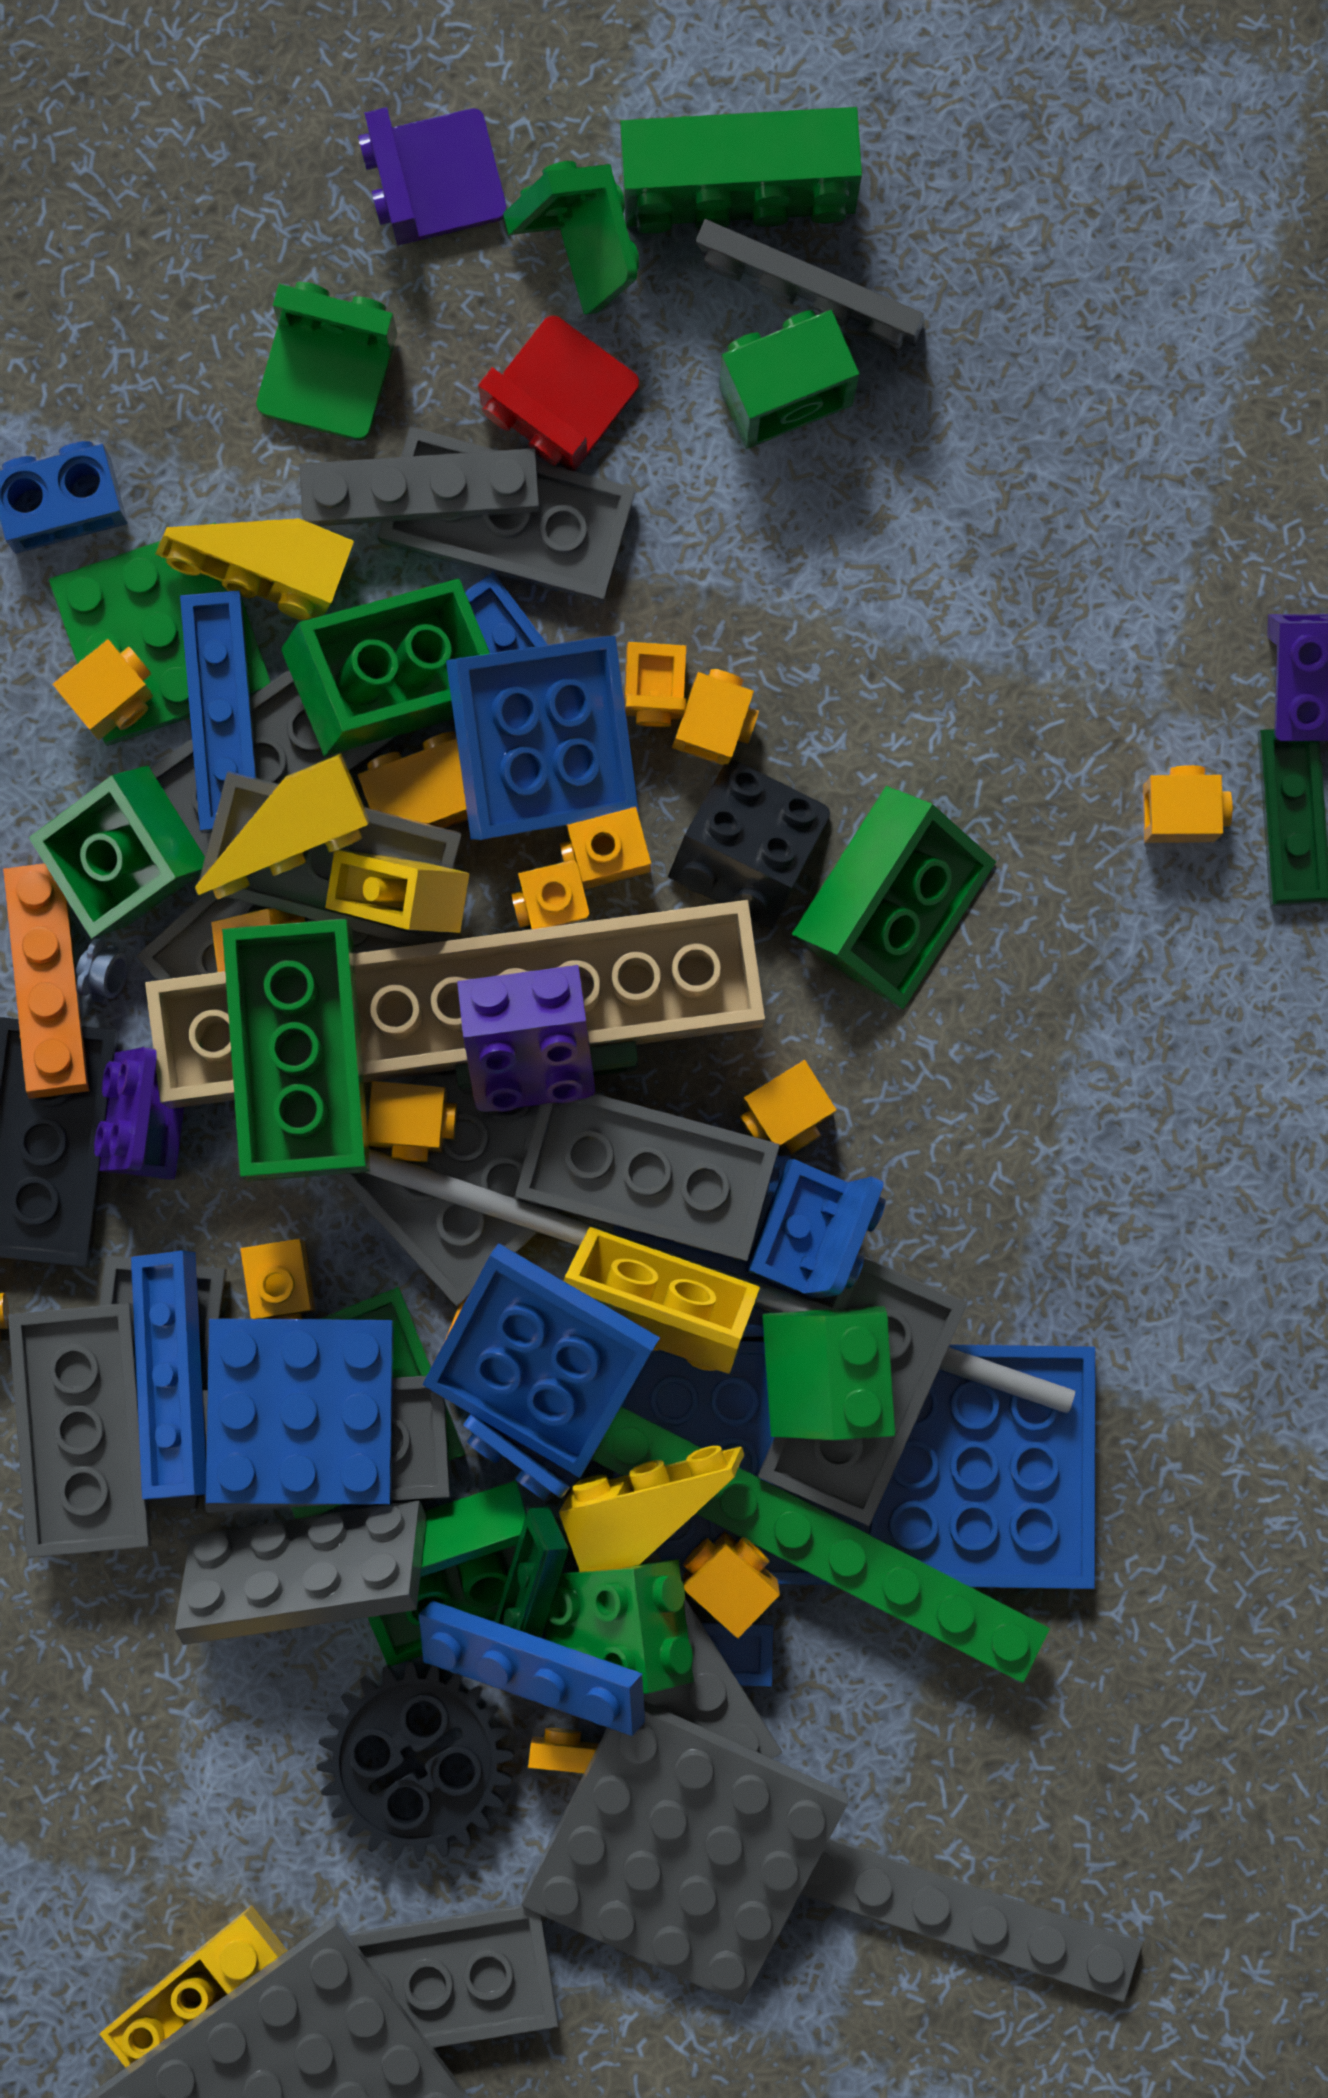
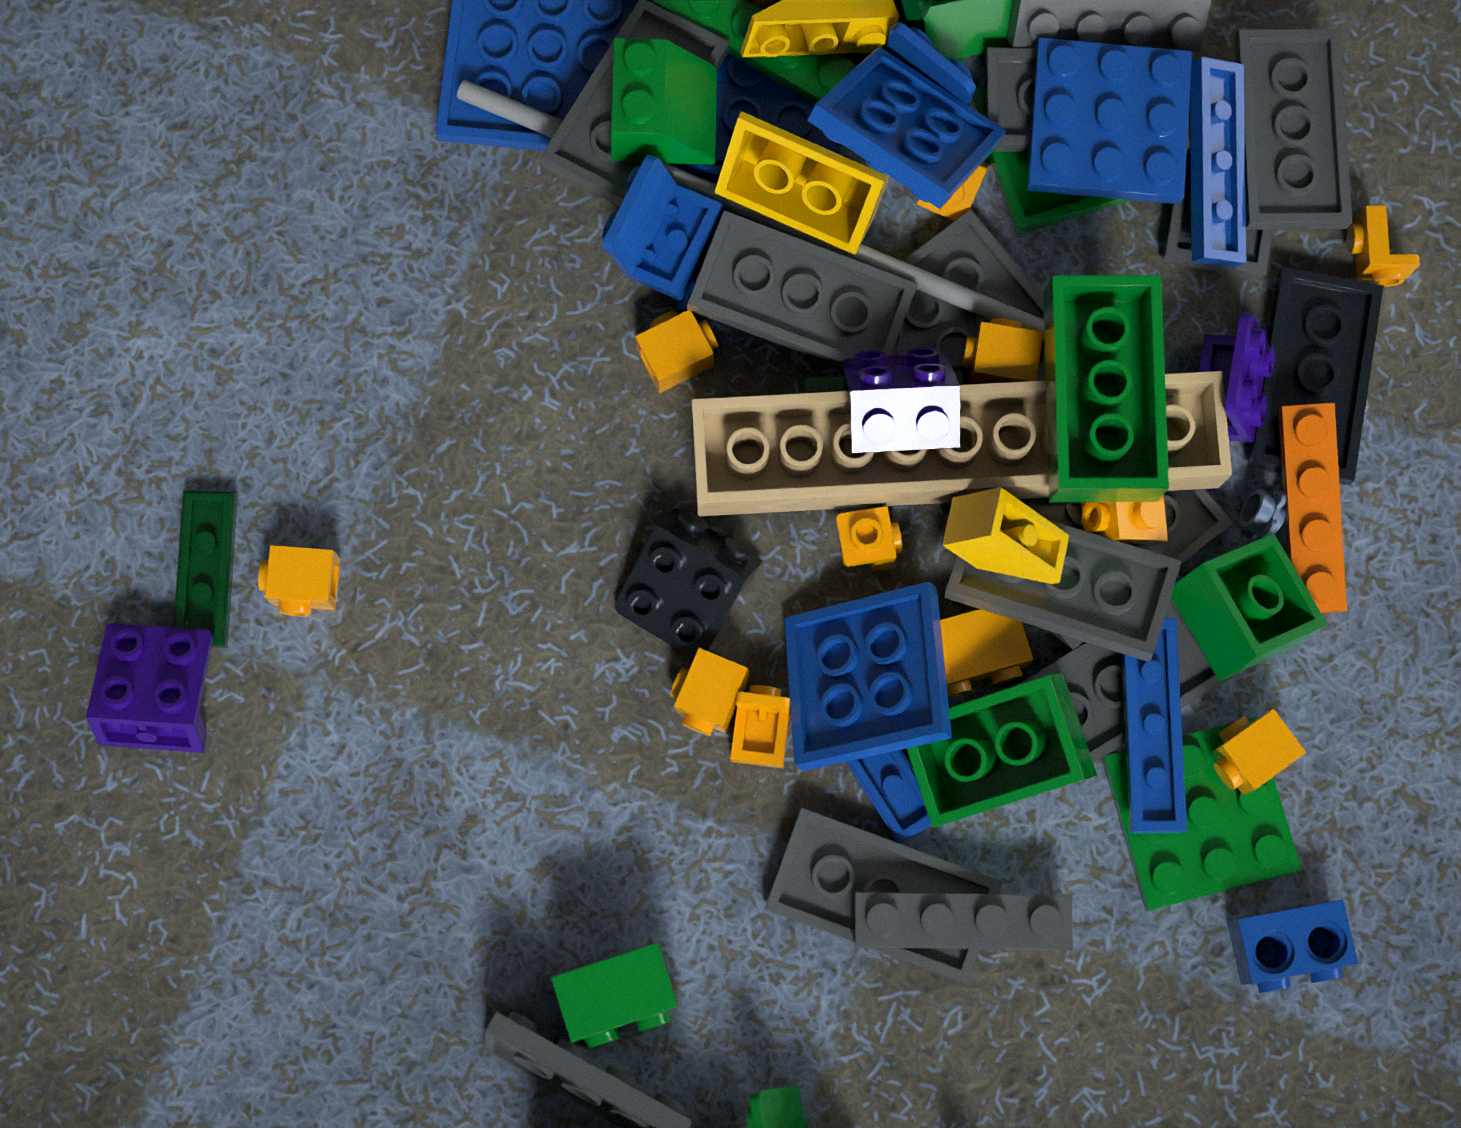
camera: 175 degrees left, 5 degrees down
(271, 559) = (1090, 862): yellow slope -> none
(278, 1280) = (1120, 239): light orange brick -> none
(300, 814) = (1089, 605): yellow slope -> none
(326, 361) = (1041, 1051): green bracket -> none
(558, 393) = (828, 1006): red bracket -> none
(607, 848) = (814, 581): light orange brick -> none
(895, 896) = (567, 522): green slope -> none

